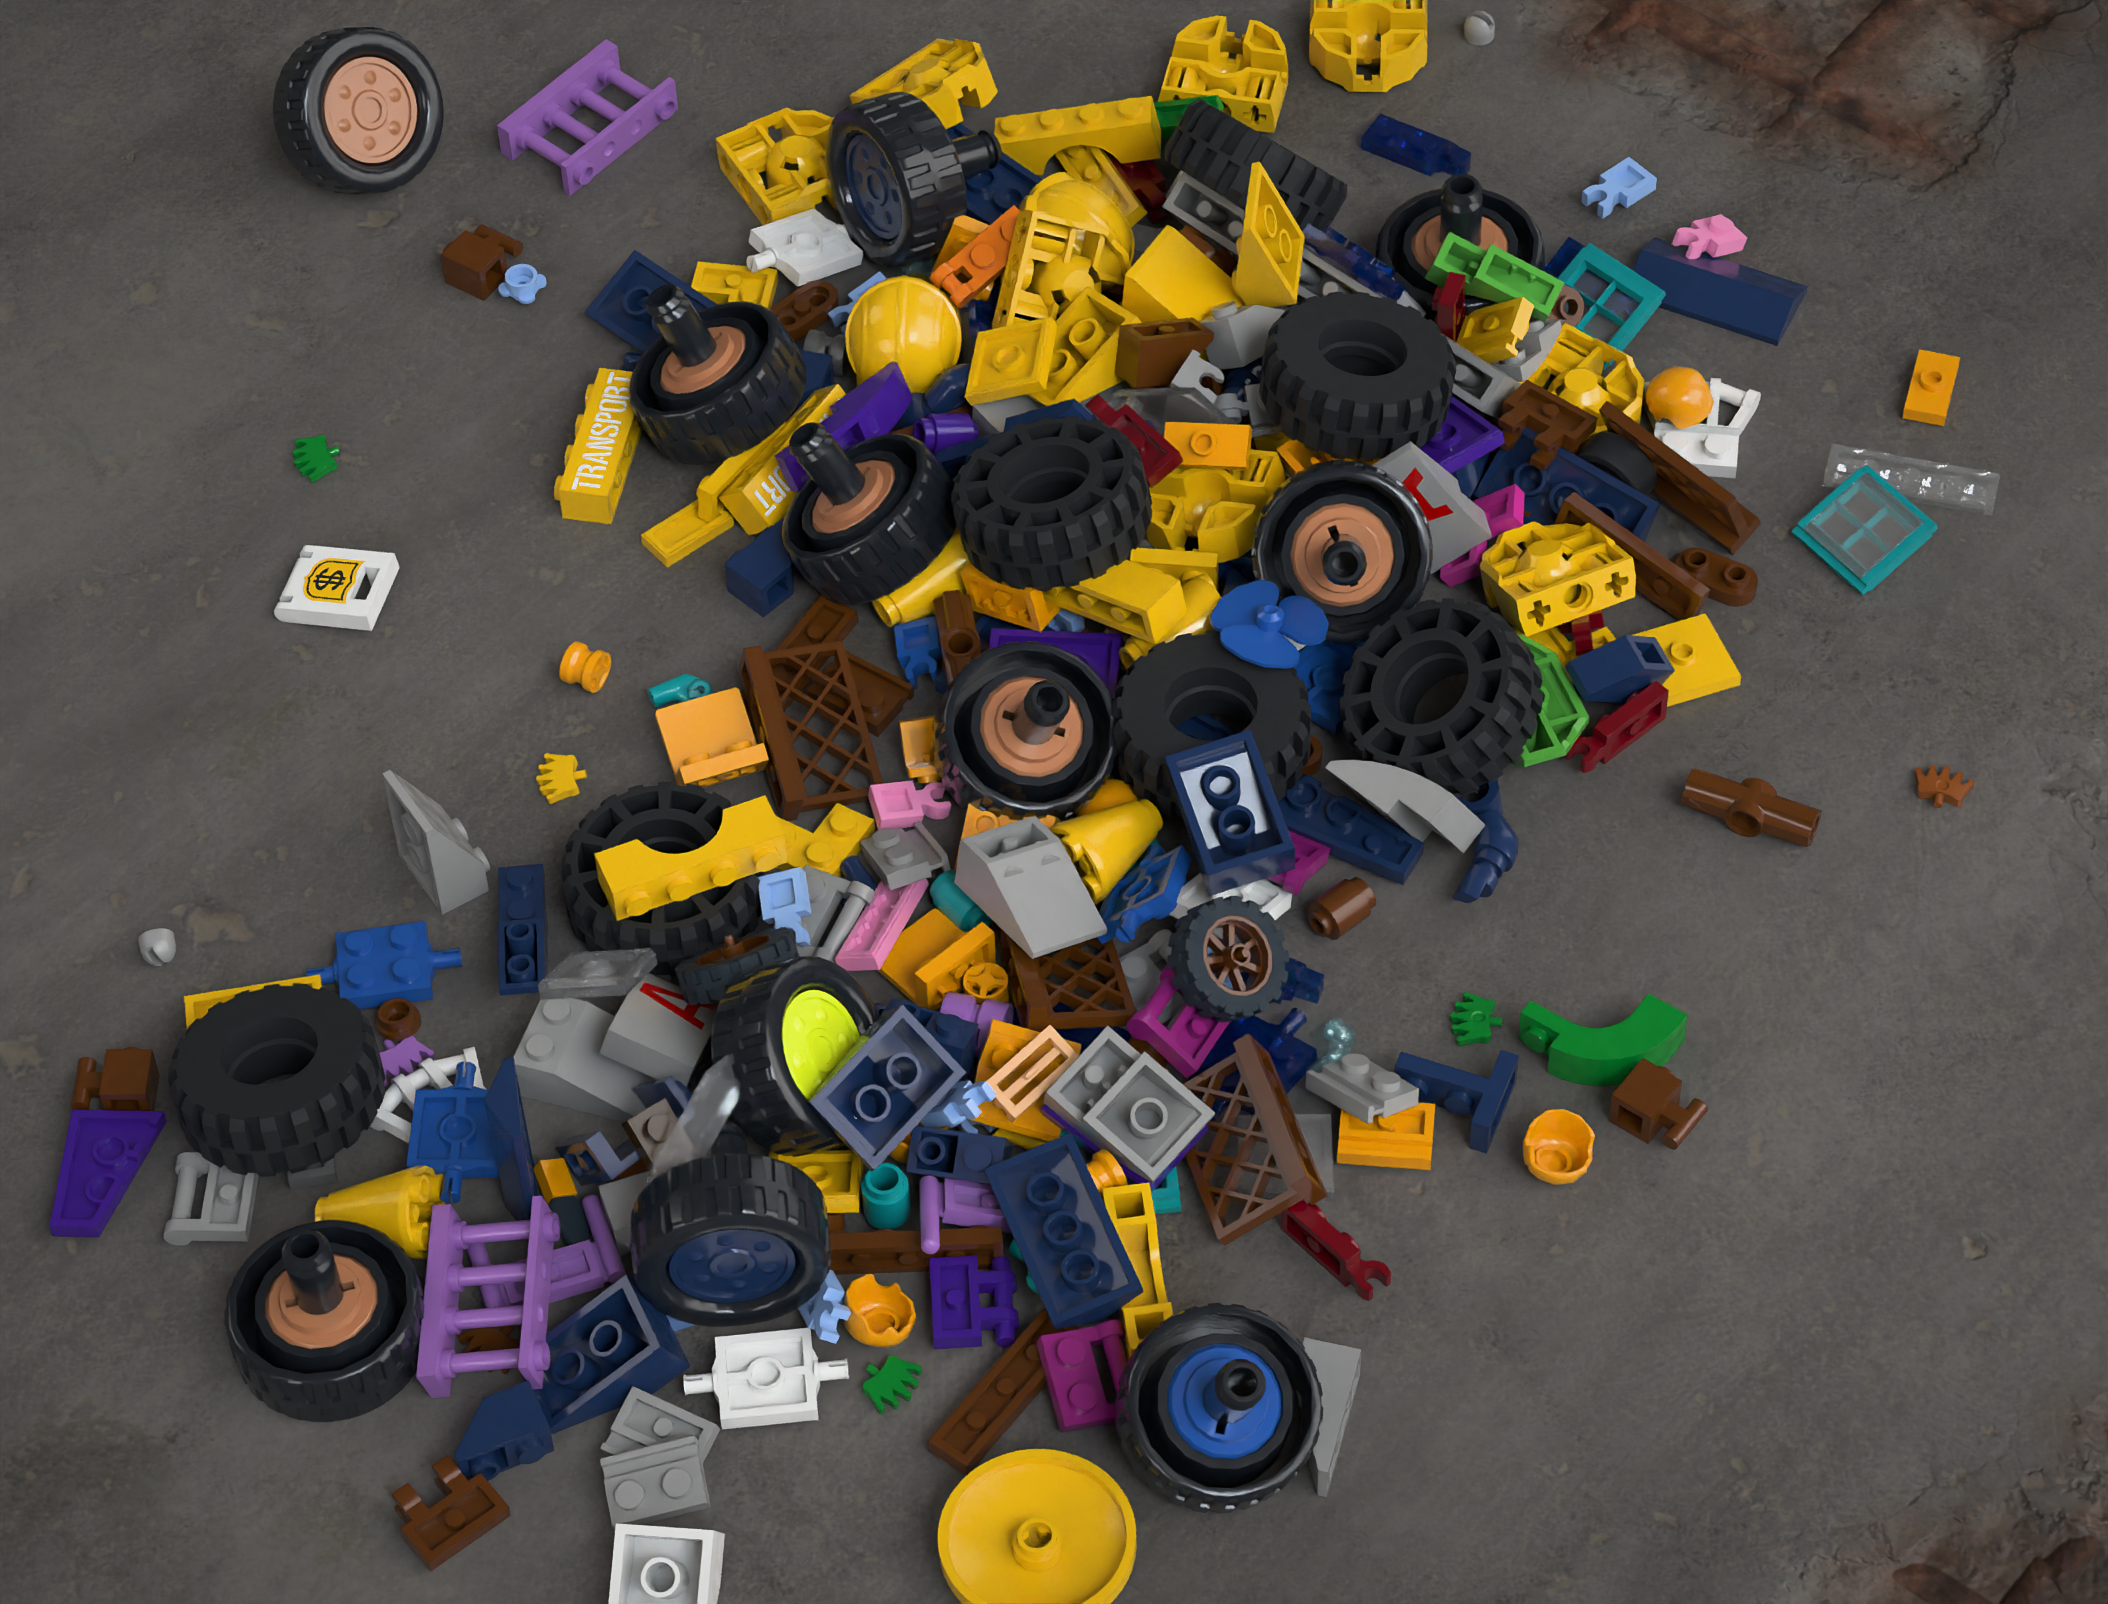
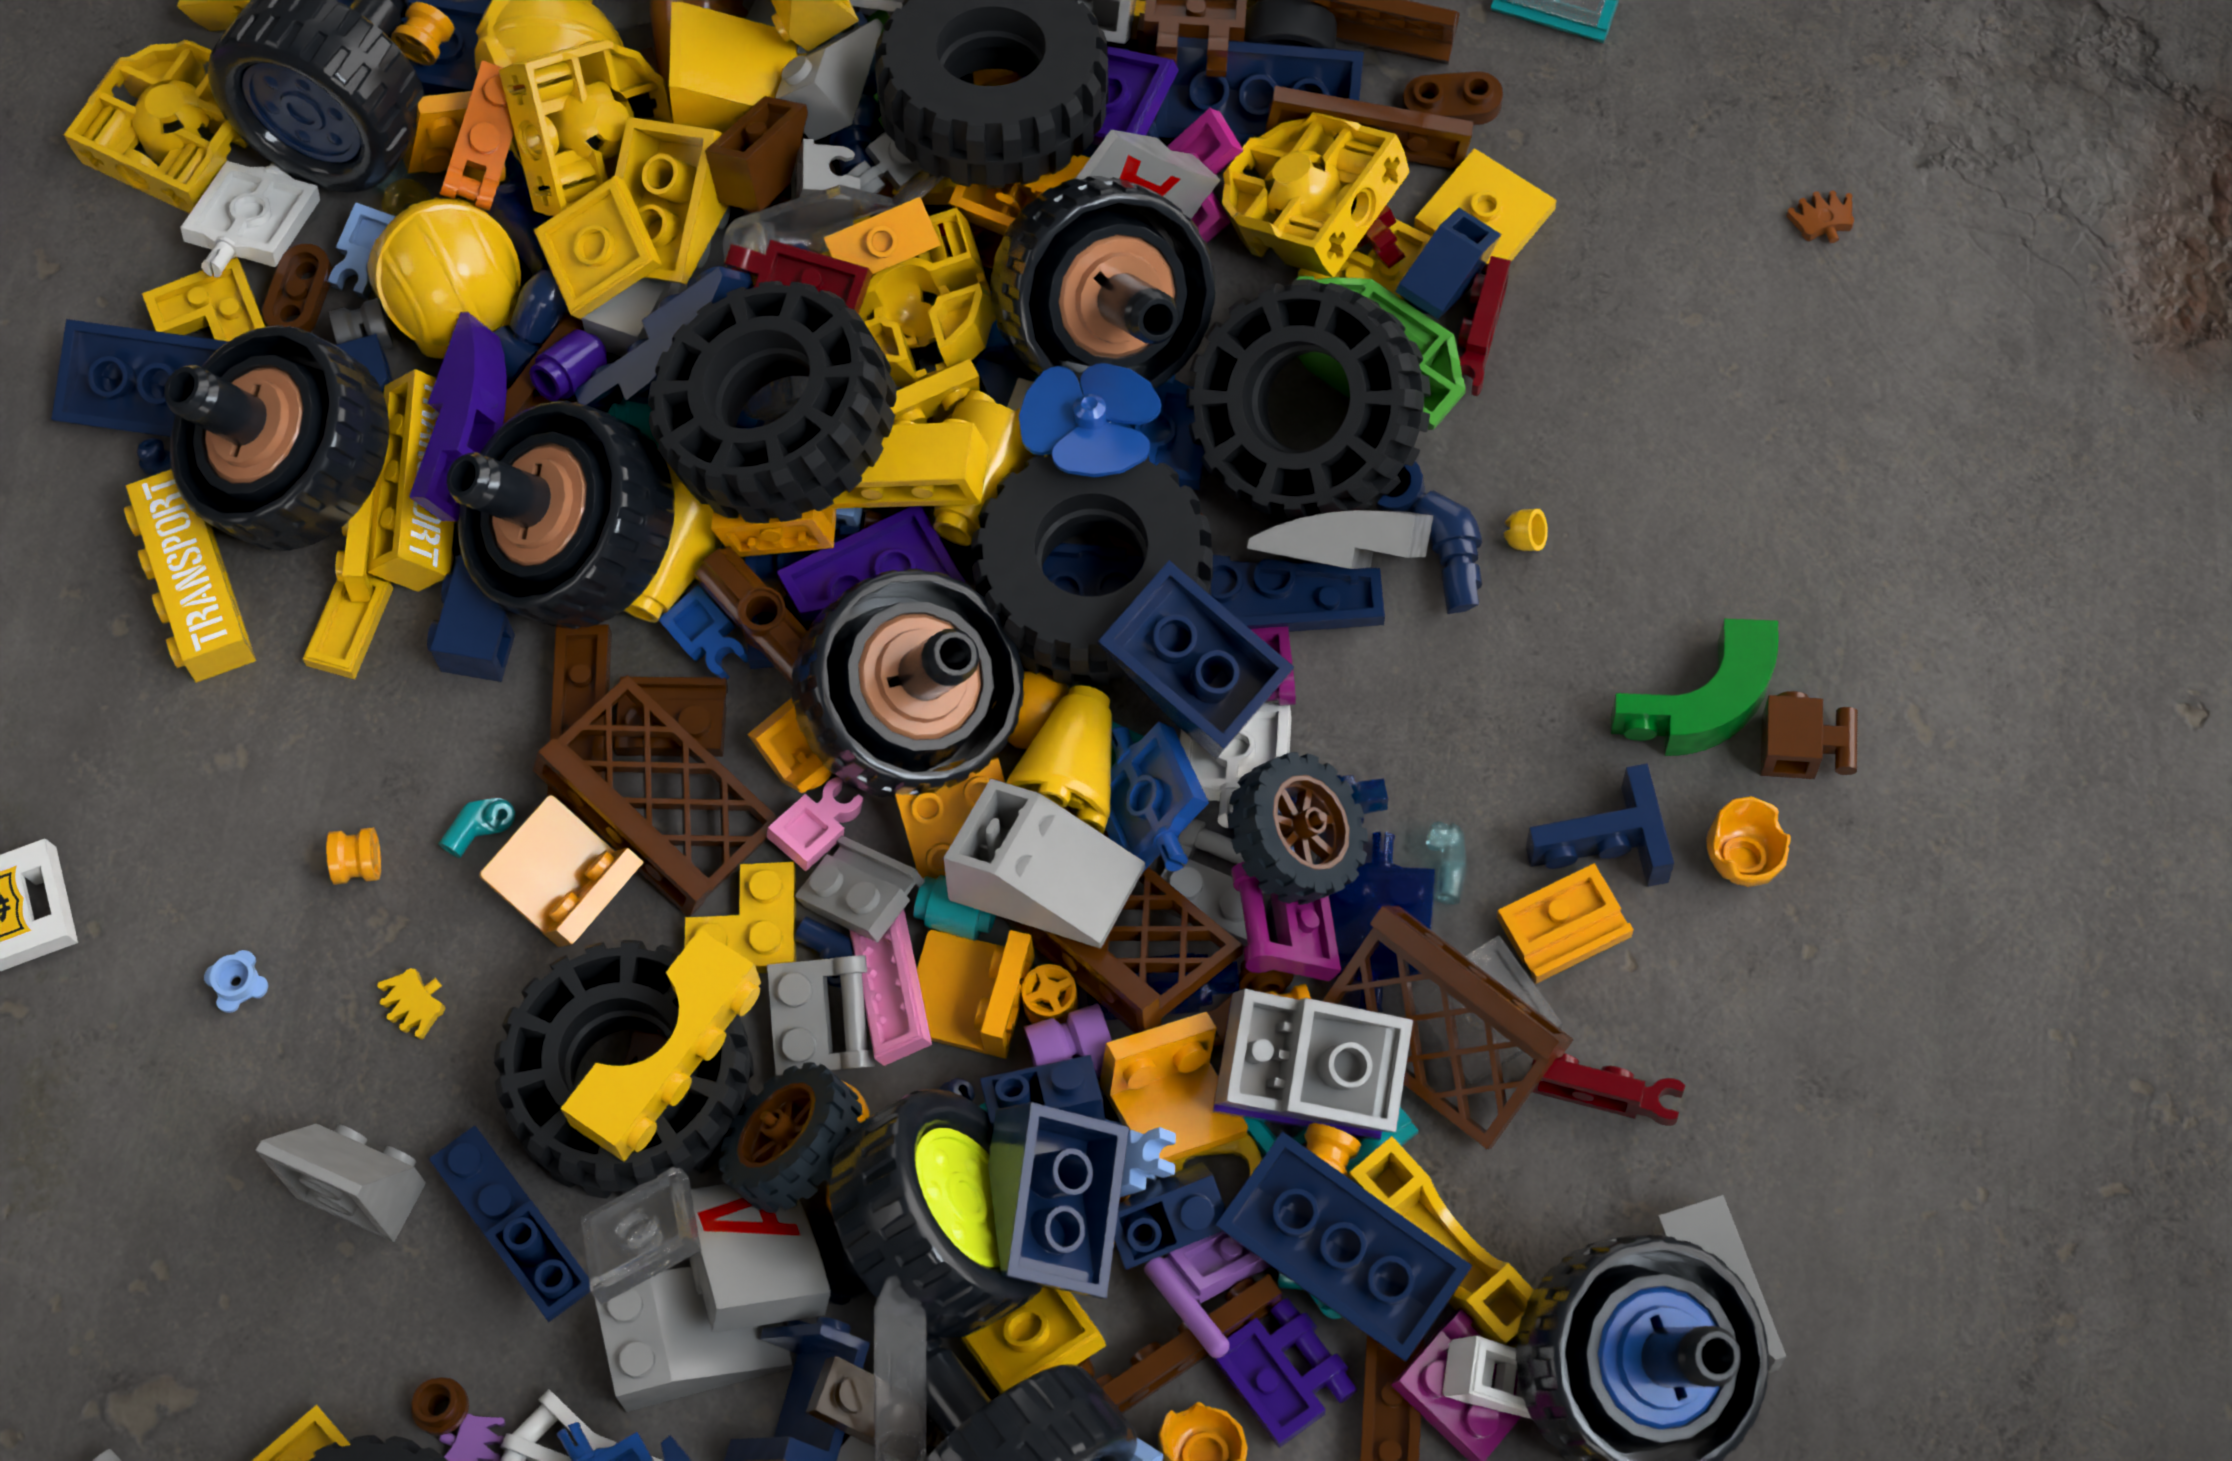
camera: 30 degrees left, 15 degrees up
(386, 964) = (377, 1347): blue plate -> none
(455, 703) = (225, 970): none -> light blue plate
(786, 900) = (780, 1024): light blue plate -> none
(886, 1197) = (1126, 1293): teal brick -> none
(996, 181) = (423, 33): none -> light orange wheel
(1002, 1099) = (1165, 1073): light nougat tile -> none
(1093, 1374) = (1471, 1374): none -> white slope
(1341, 908) = (1347, 690): reddish brown brick -> none
(1362, 1088) = (1514, 889): light grey plate -> none
(1474, 1020) = (1557, 737): green piece -> none
(1556, 868) = (1527, 530): none -> yellow hinge
(1751, 807) = (1667, 344): reddish brown piece -> none

